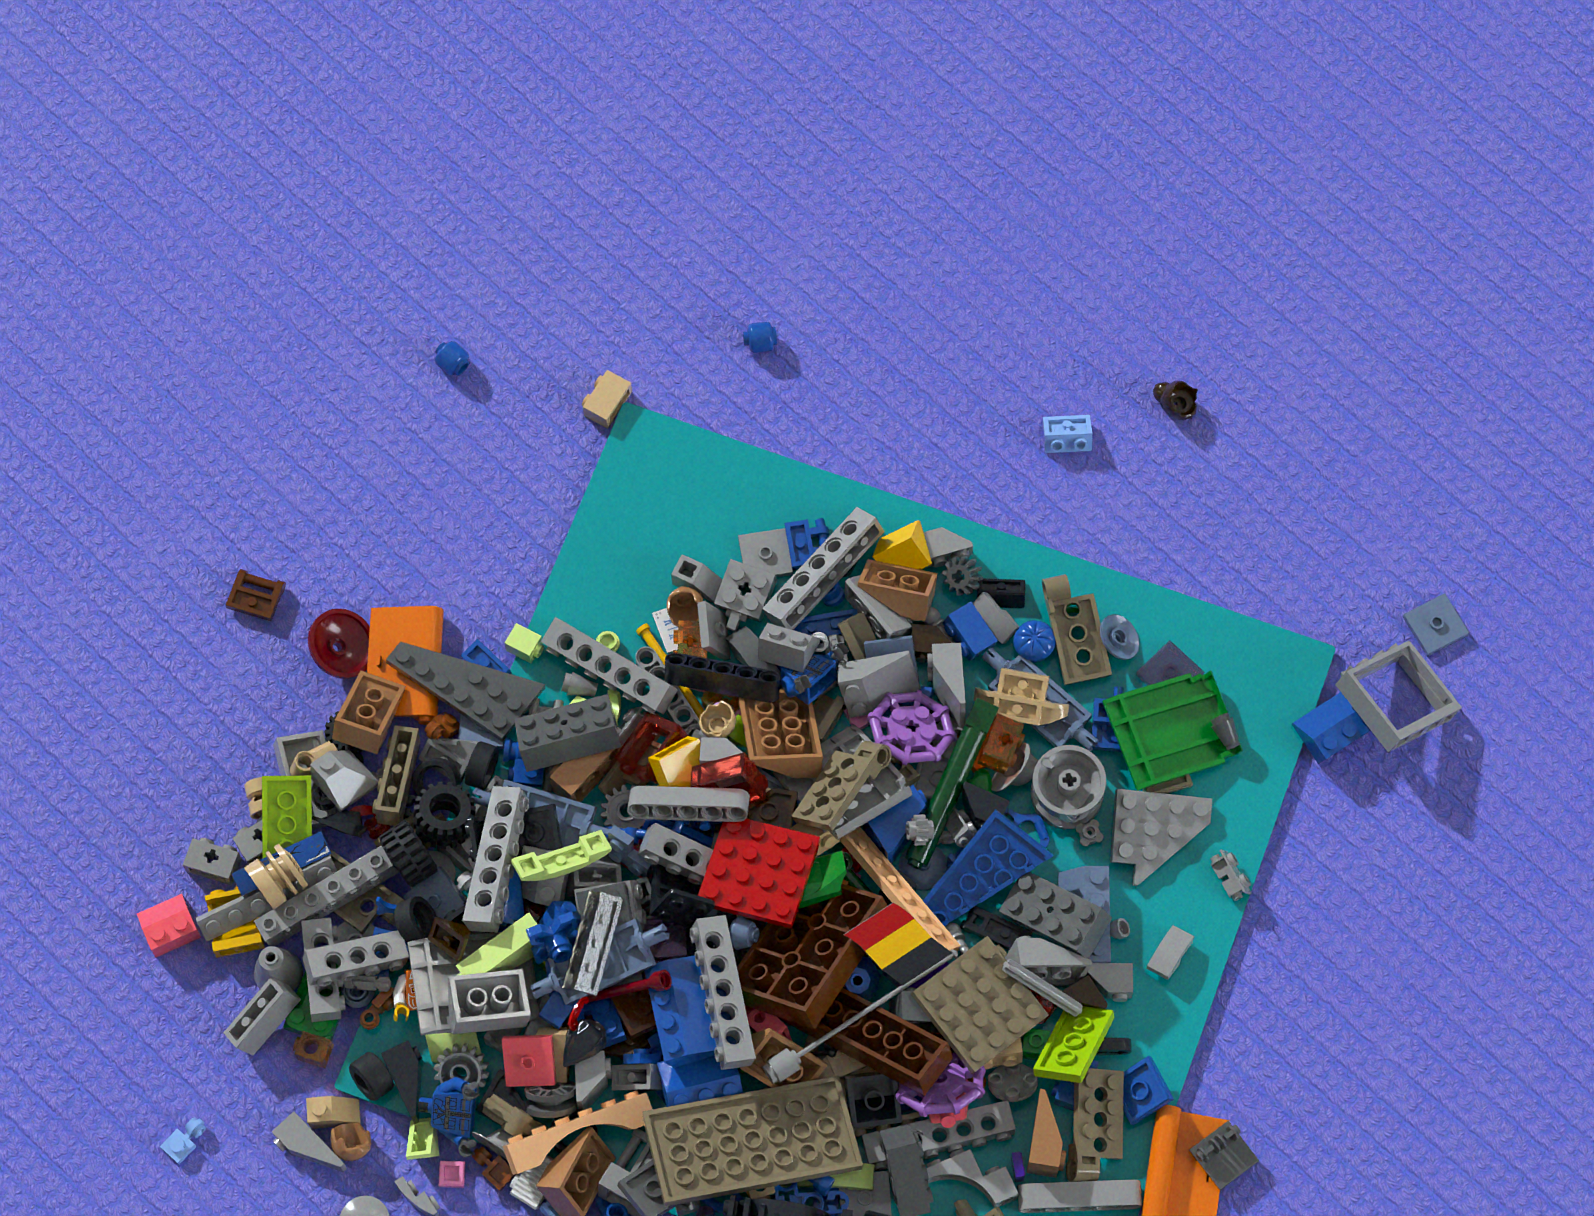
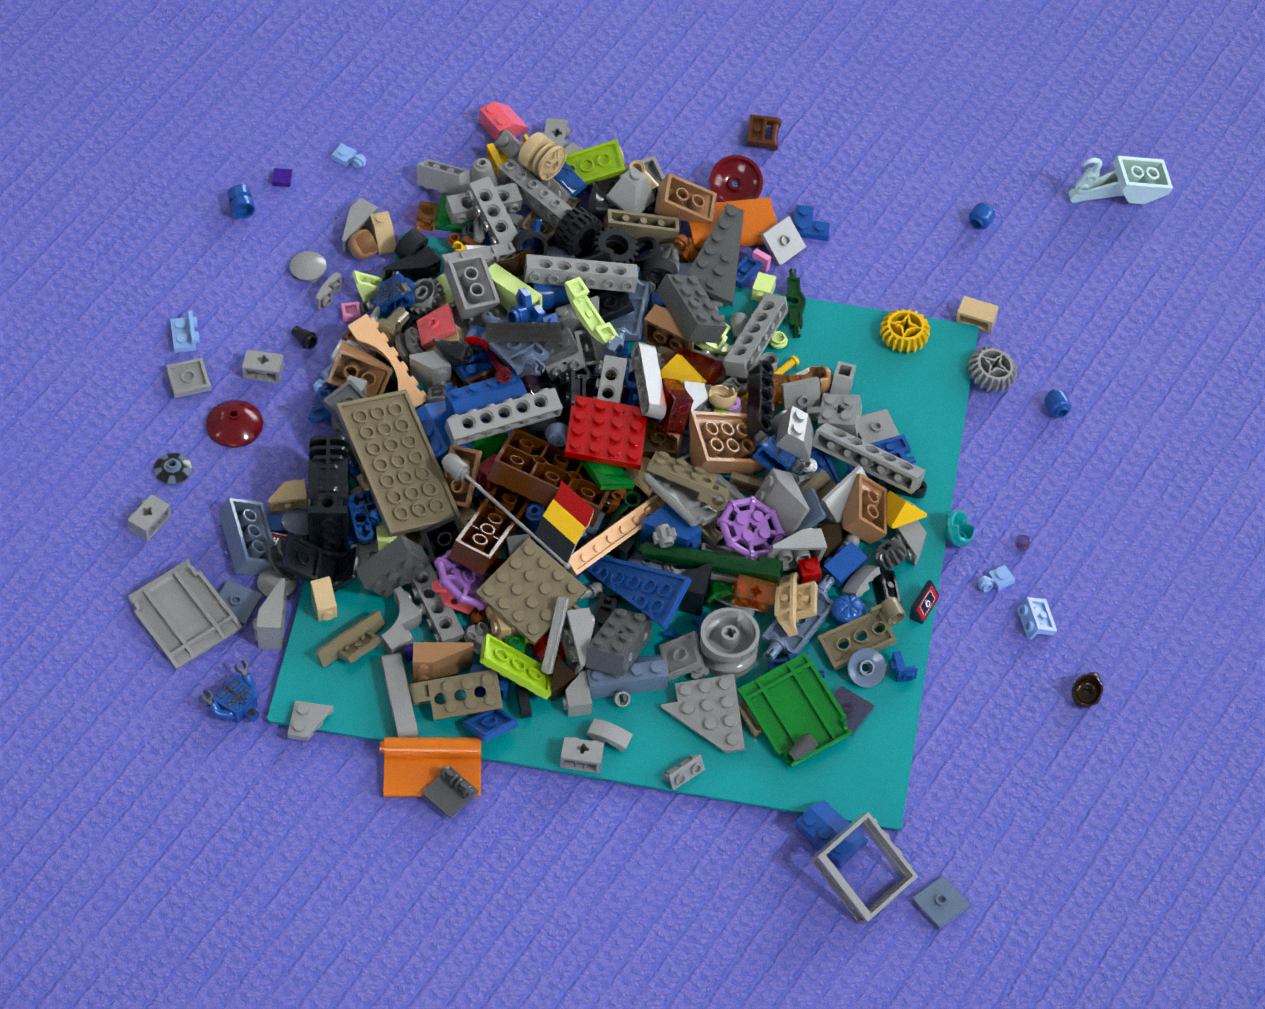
camera: 75 degrees right, 15 degrees down
(422, 575) = (807, 227): none -> blue plate
(439, 161) = (1134, 177): none -> light aqua slope
(449, 605) = (783, 240): none -> plate
(471, 635) = (762, 257): none -> bright pink tile
(537, 609) = (795, 310): none -> dark green piece
(607, 479) = (916, 331): none -> yellow gear
(697, 392) = (984, 361): none -> light grey gear
(932, 490) = (958, 529): none -> teal hair
(955, 421) = (1022, 542): none -> clear purple hinge
(974, 674) = (809, 570): none -> red brick
(1002, 462) = (998, 577): none -> light blue plate
(1032, 554) = (924, 603): none -> slope
(1072, 845) = (682, 655): none -> light grey plate
(1123, 600) = (898, 667): none -> blue bracket
(1195, 1003) = (582, 755): none -> light grey brick

